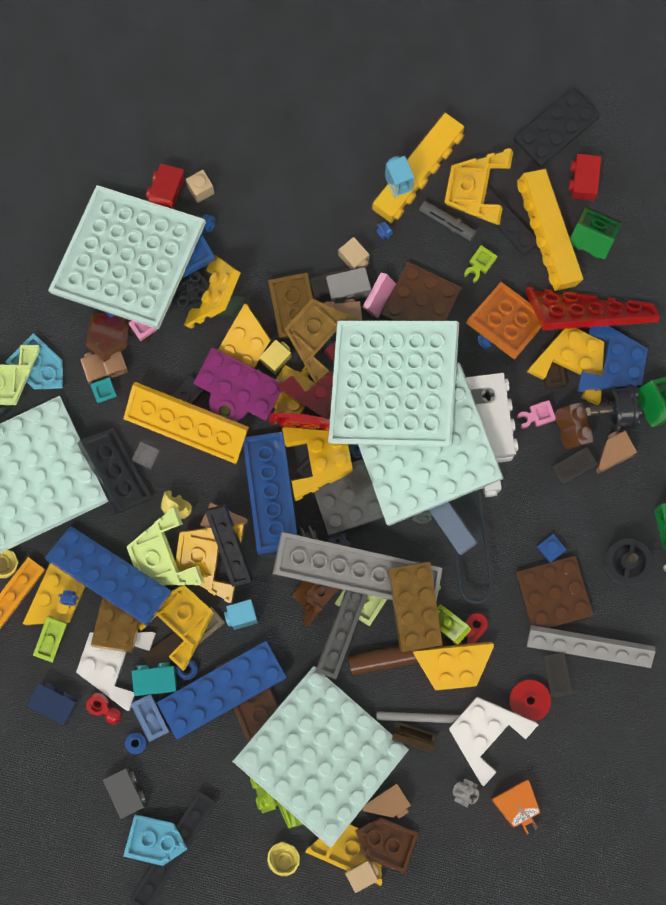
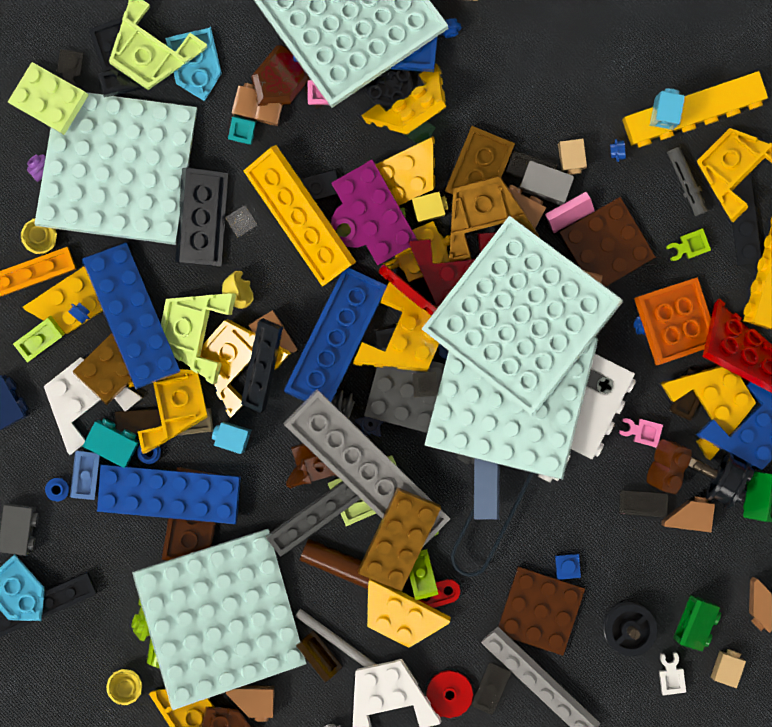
camera: 30 degrees right, 10 degrees up
(112, 715) = (44, 431): red plate -> none

